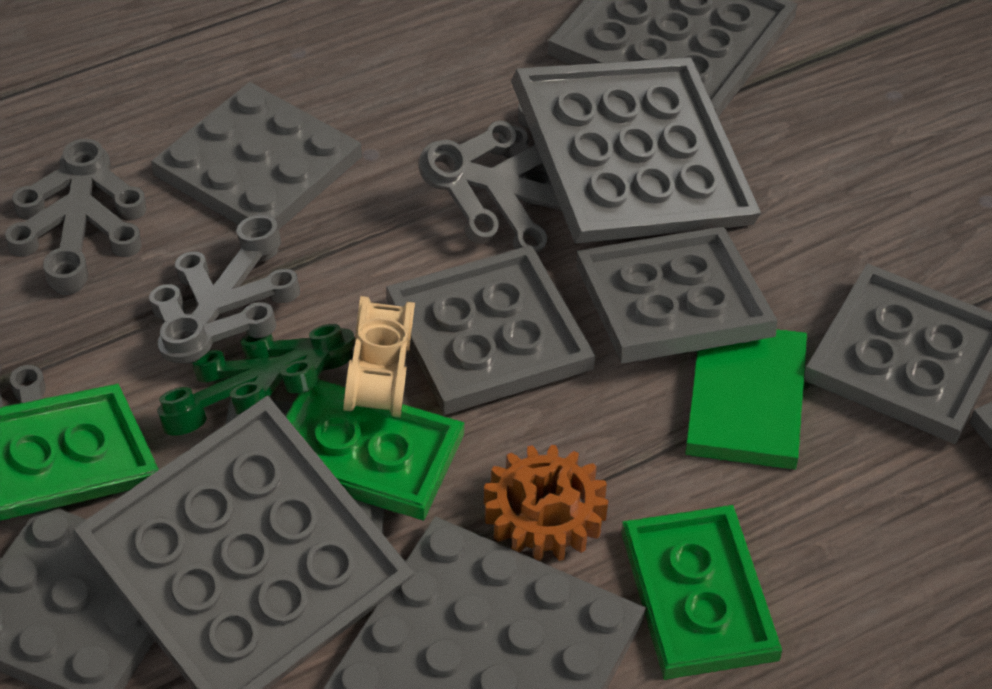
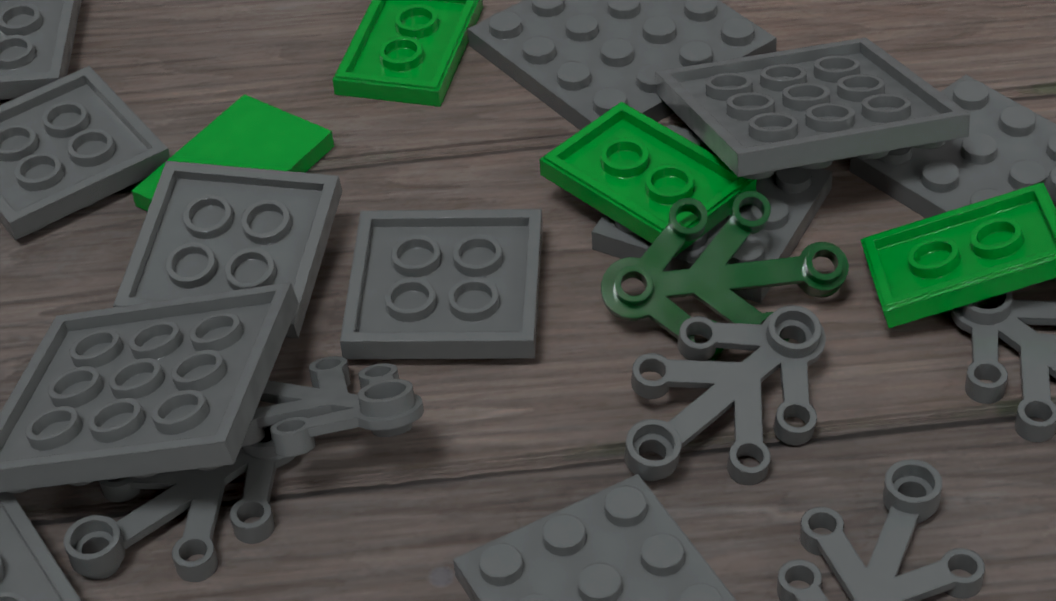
camera: 150 degrees left, 5 degrees down
(378, 362) = (592, 213): tan piece -> none
(547, 499) = (499, 112): dark orange gear -> none

